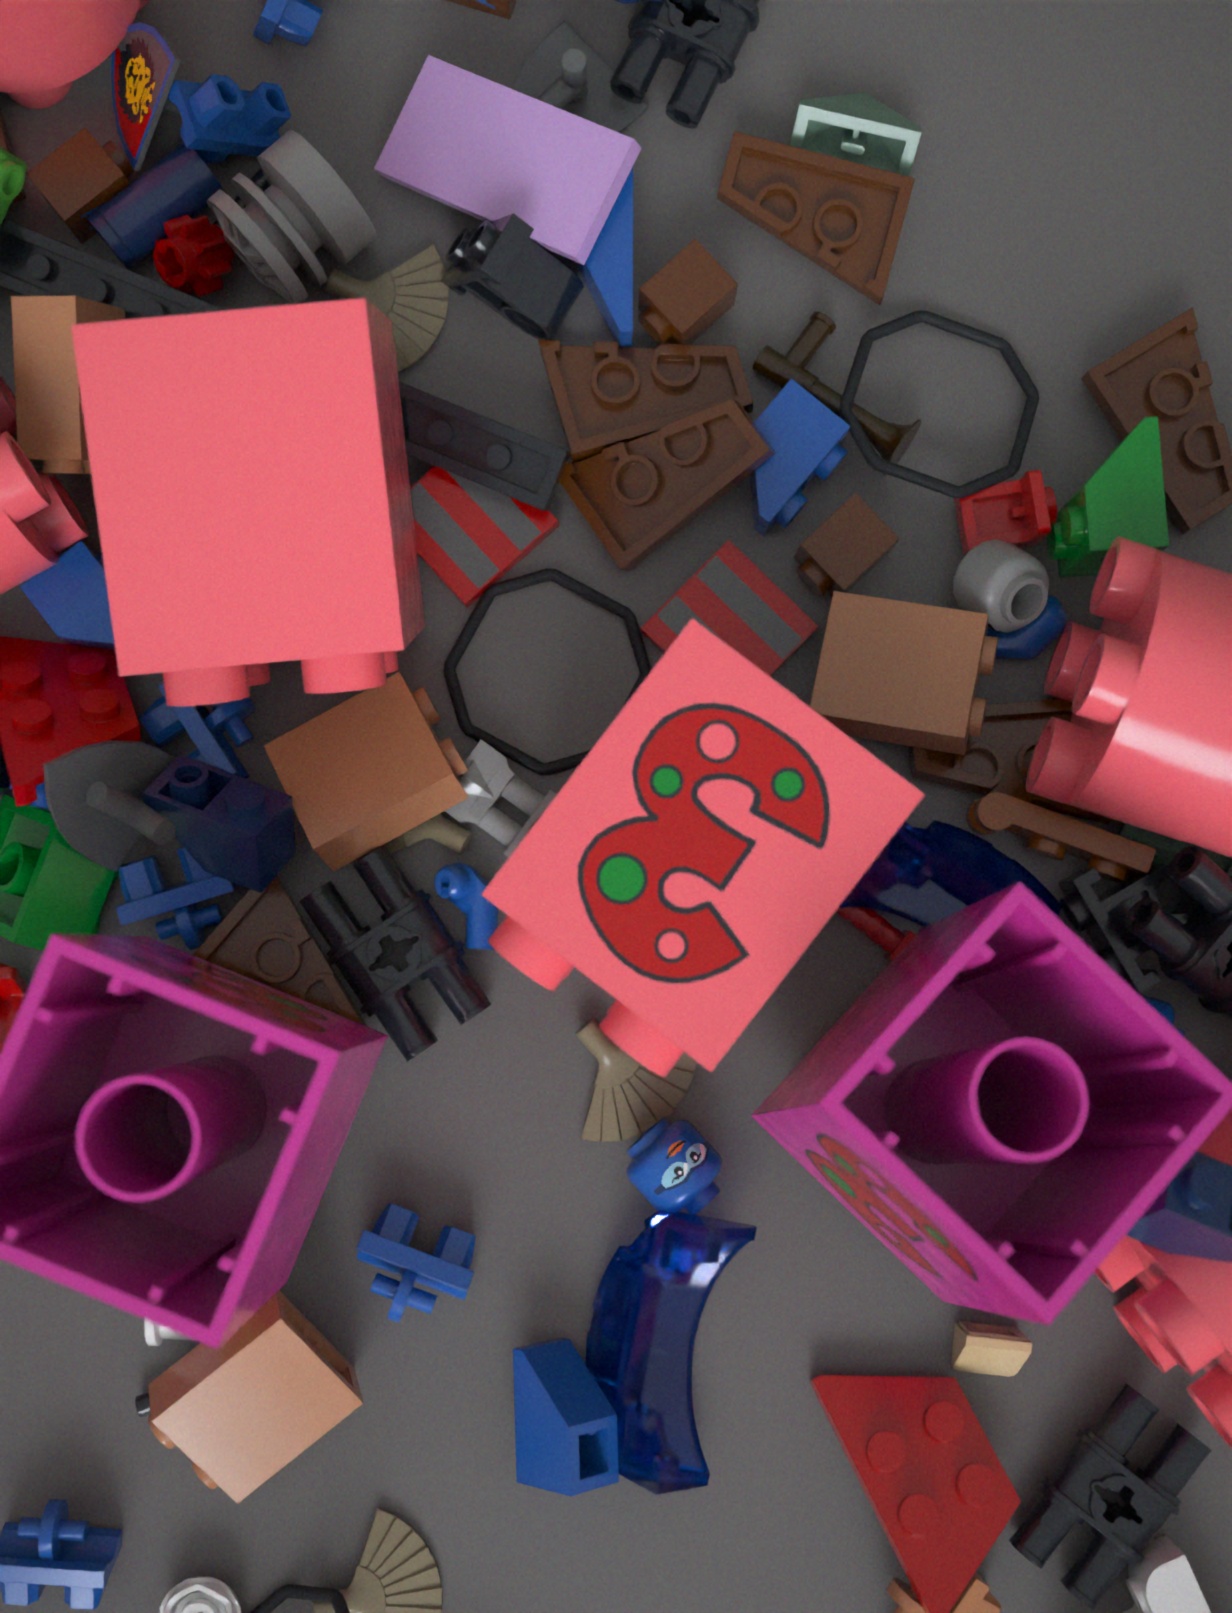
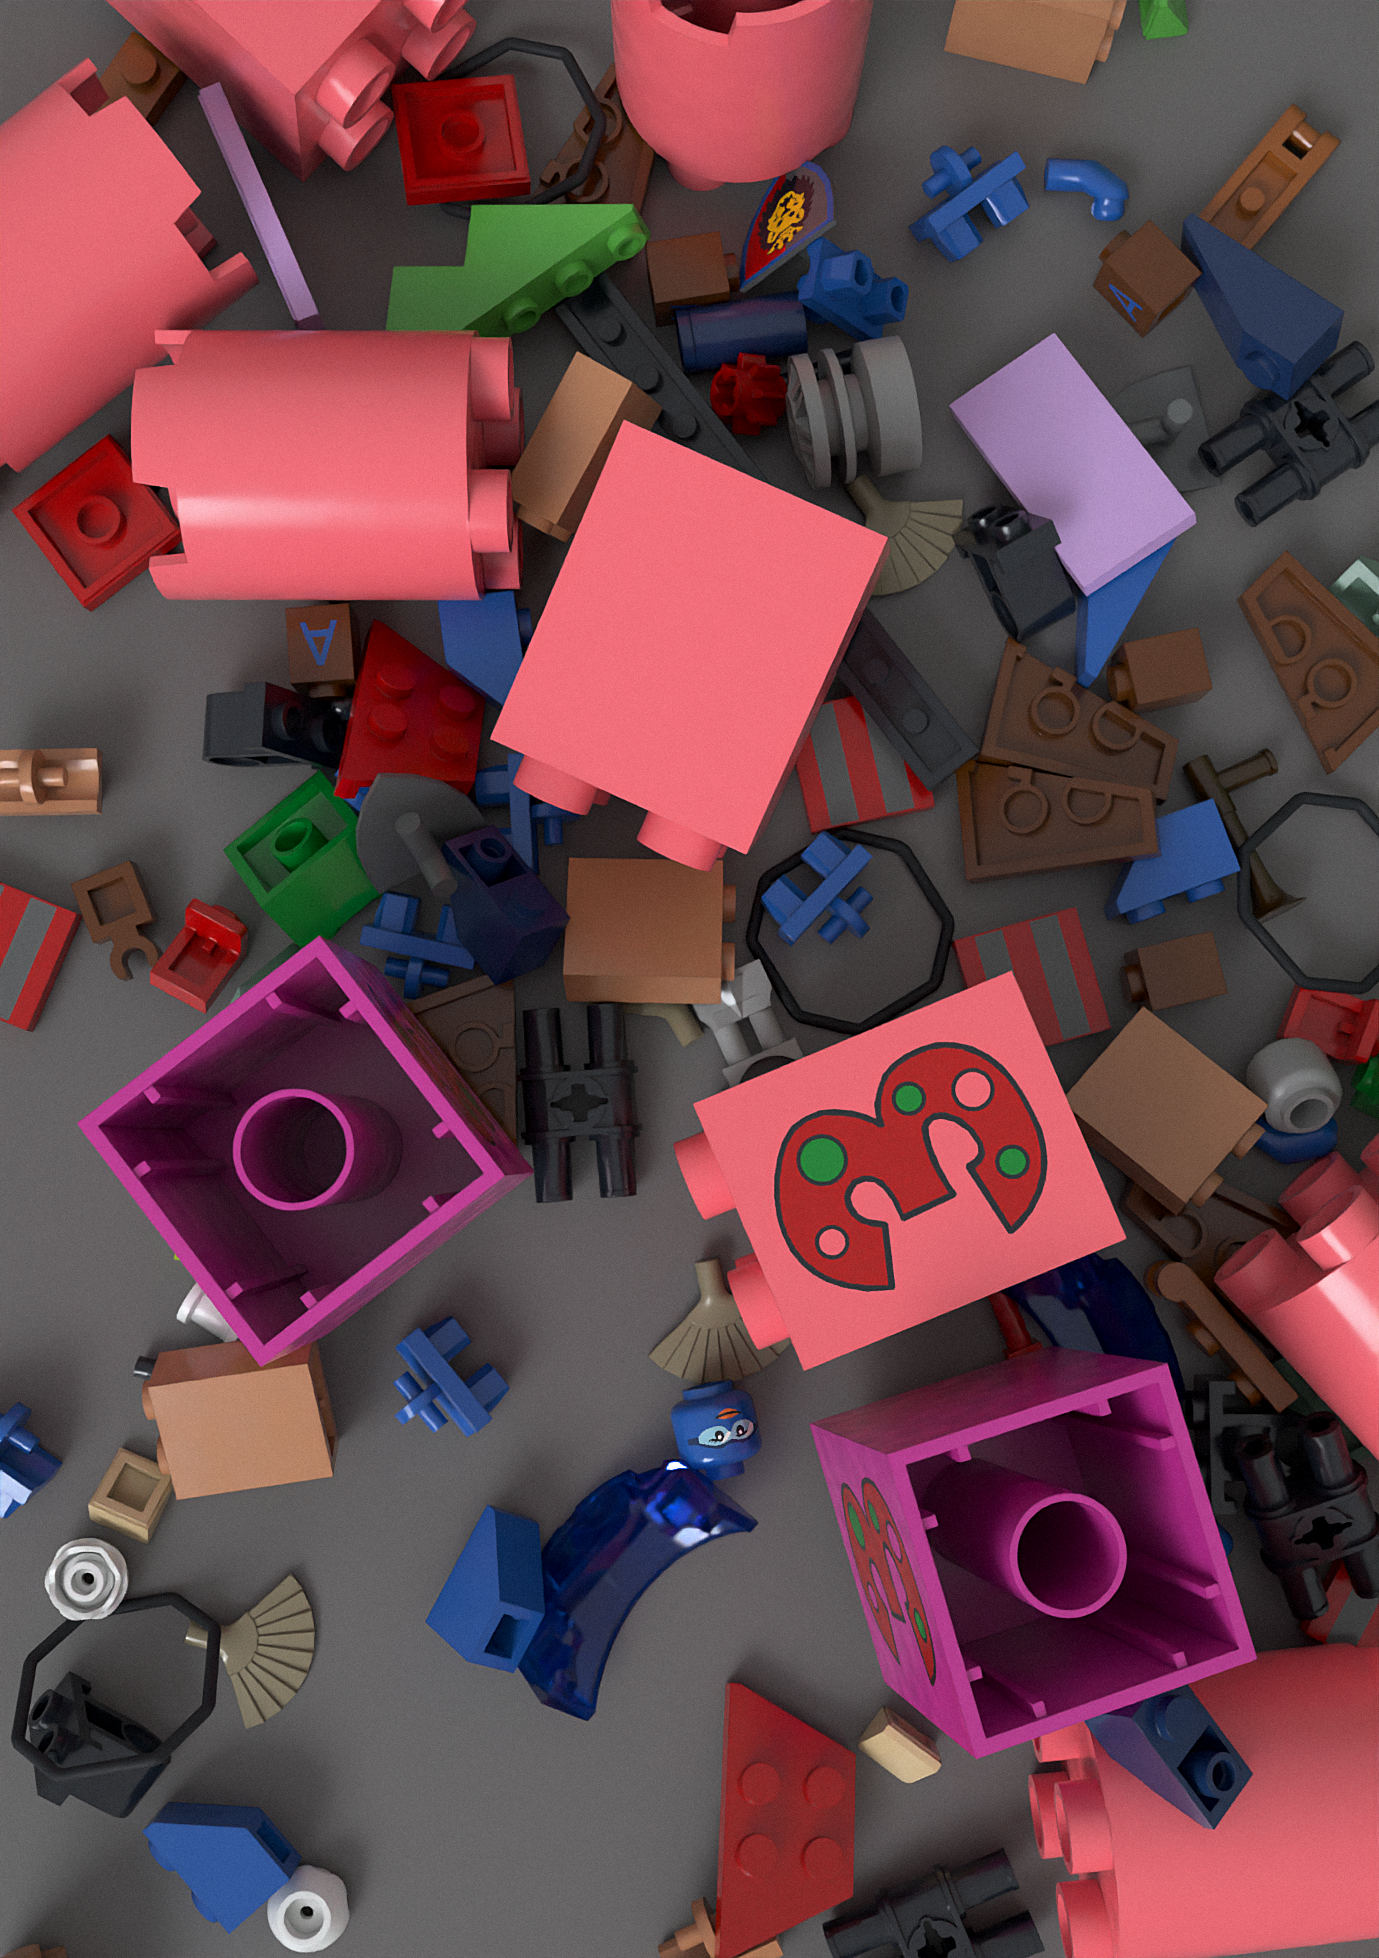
camera: 30 degrees right, 0 degrees up
(198, 1524) = (131, 1496): none -> tan slope
(463, 888) = (674, 1094): blue arm -> none
(506, 623) = (838, 868): none -> blue hips

